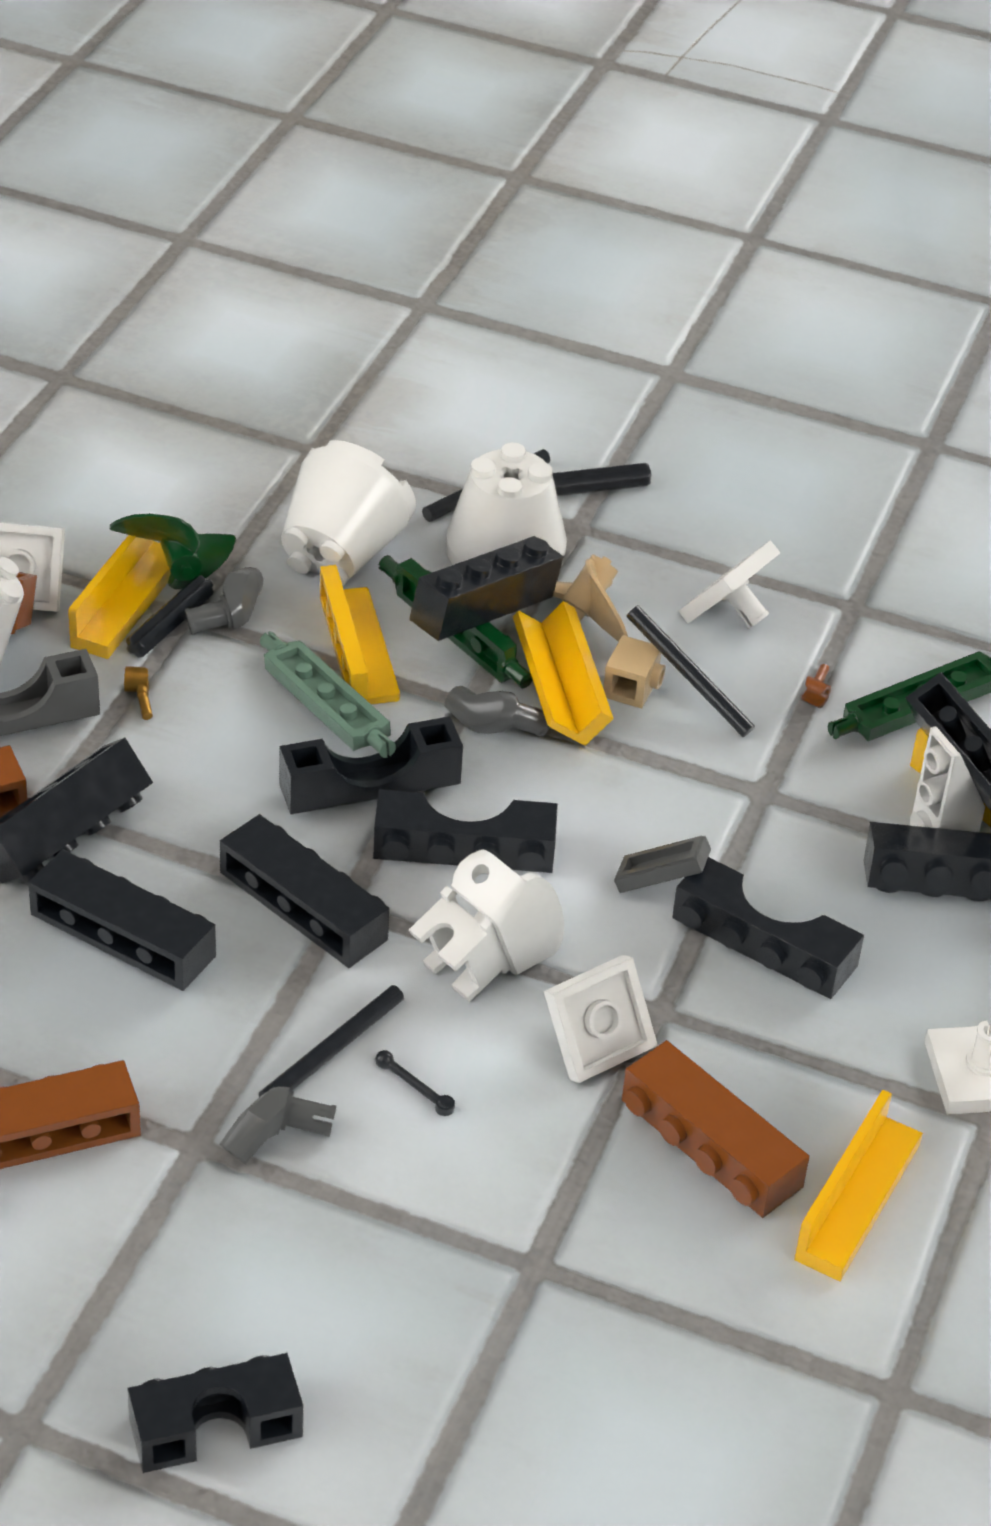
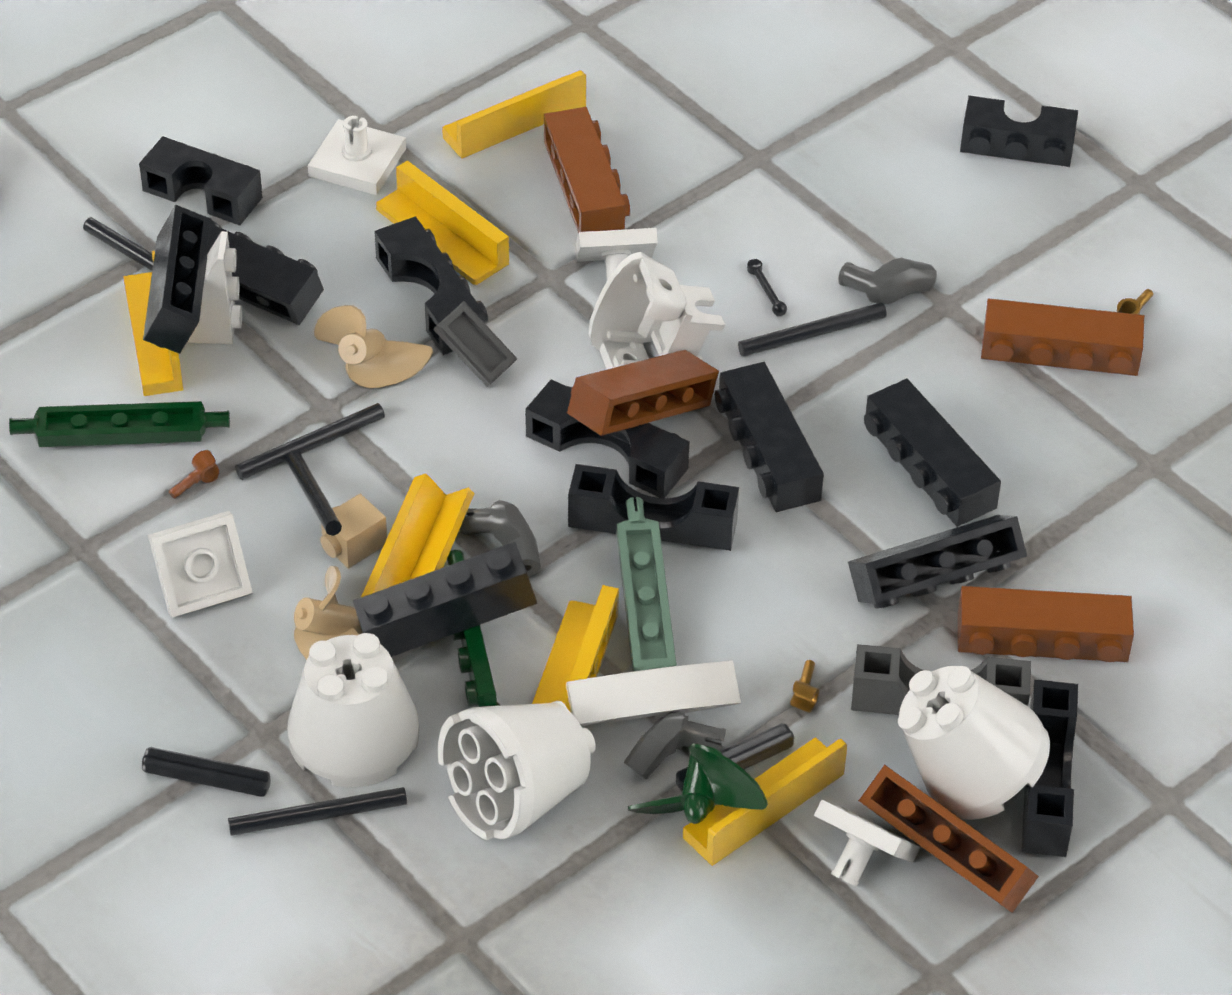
camera: 150 degrees left, 5 degrees up
(256, 611) = (653, 692): none -> white slope
(451, 832) = (642, 392): none -> dark orange brick
(746, 751) = (310, 440): none -> black bar
(775, 832) = (368, 355): none -> tan piece
(813, 1015) = (467, 237): none -> yellow panel

